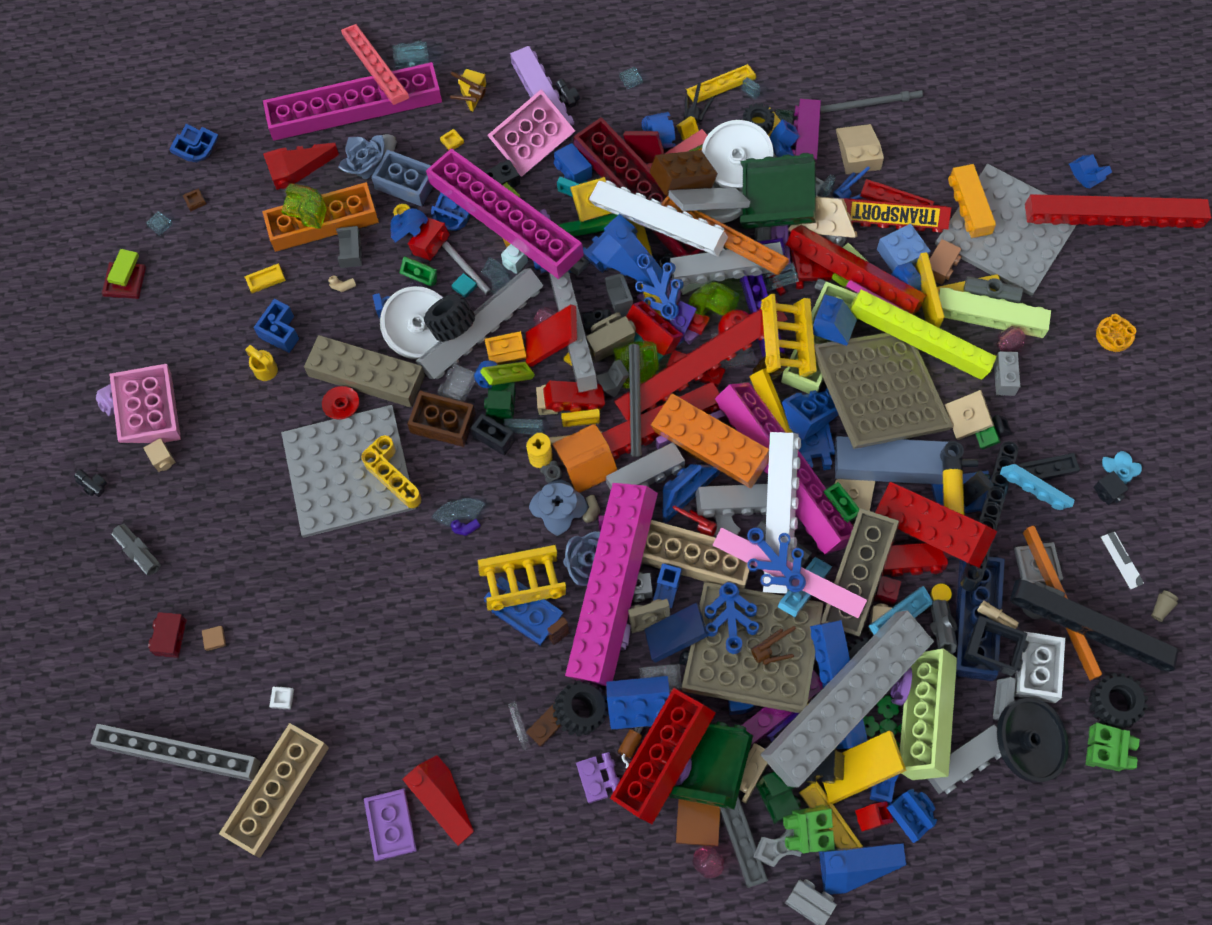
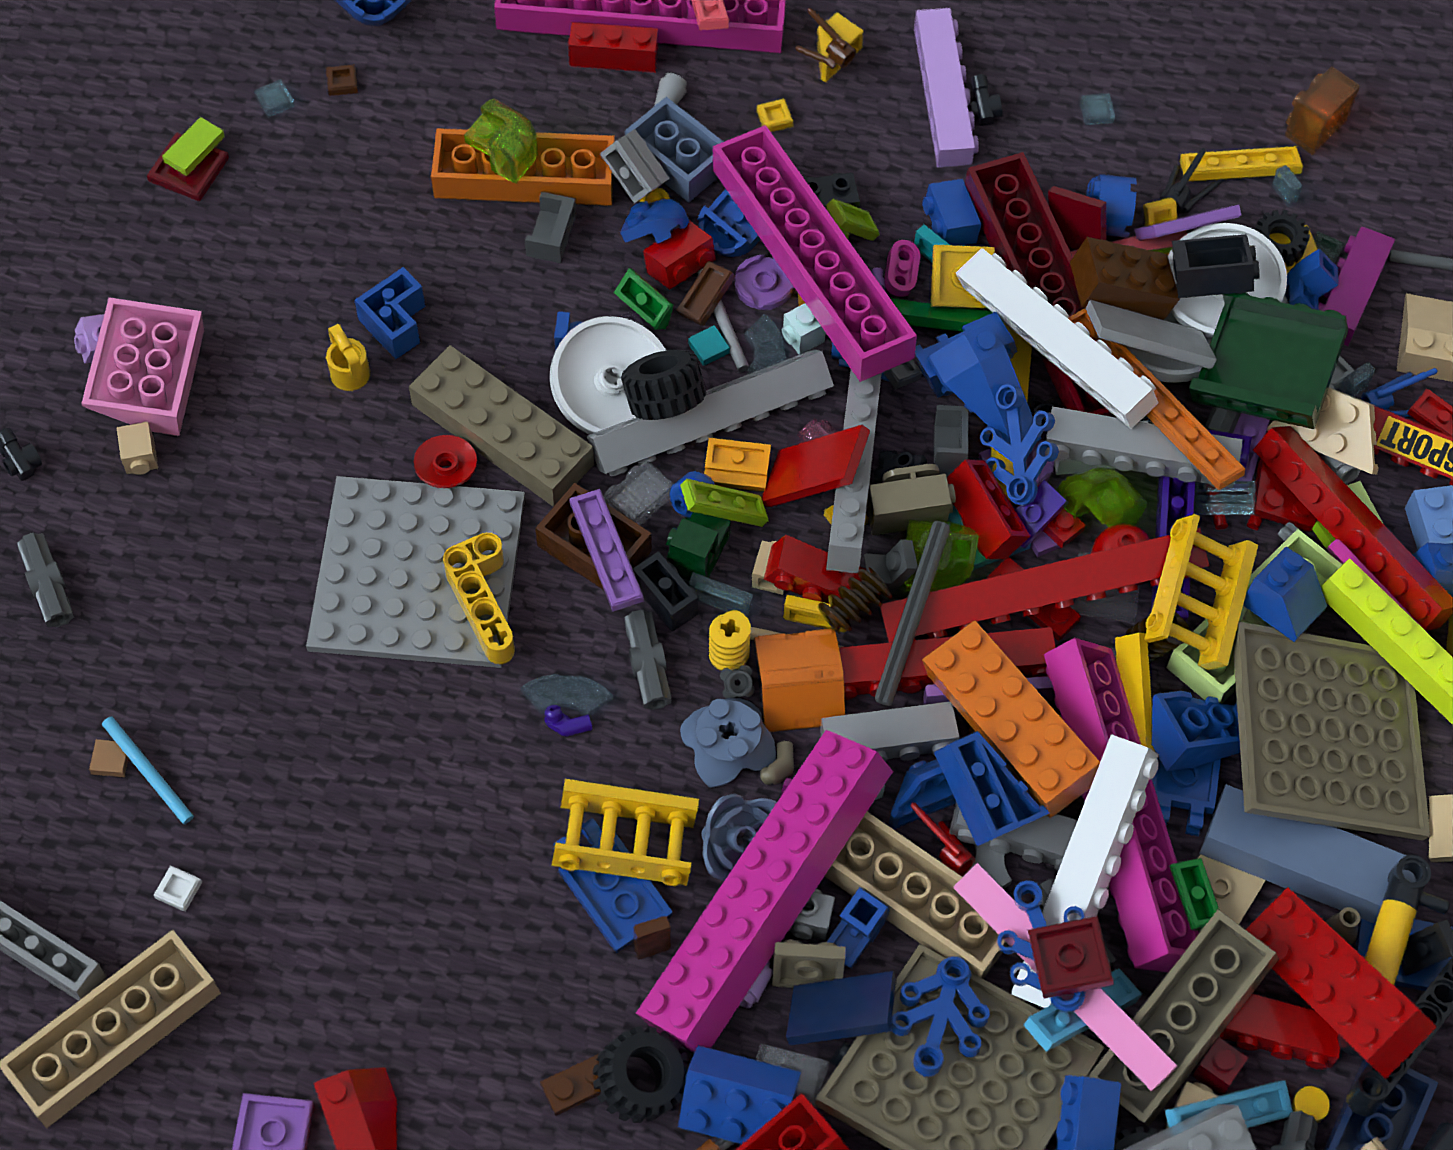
camera: 15 degrees right, 5 degrees down
(167, 635) = (41, 727): dark red brick -> none
(238, 637) = (147, 770): none -> medium azure bar
(265, 278) = (403, 233): yellow tile -> none
(293, 165) = (520, 75): red wedge -> none
(340, 285) = (514, 282): tan arm -> none
(341, 128) = (613, 47): none -> red brick
(363, 155) = (624, 94): sand blue brick -> none
(385, 196) = (634, 165): none -> light grey brick
(451, 256) = (705, 293): none -> reddish brown tile
(452, 423) = (606, 550): none -> medium lavender tile
(482, 245) = (757, 288): none -> medium lavender tile
(497, 476) = (647, 660): none -> dark grey piece
(518, 723) = (531, 1068): clear tile -> none
(519, 186) = (853, 219): none -> lime tile
(531, 132) = (903, 142): bright pink slope -> none
(556, 207) = (902, 270): none -> dark pink plate
(600, 404) = (854, 600): none -> dark brown piece
(705, 127) = (1188, 222): none -> medium lavender tile
(711, 485) = (985, 789): none -> blue wedge
(727, 141) = (1214, 266): none -> black window
(755, 39) = (1321, 109): none -> clear orange brick
(763, 651) = (971, 1088): reddish brown plant -> none
(790, 562) = (1070, 957): none -> dark red tile
(925, 490) = (1345, 924): none -> dark tan cone

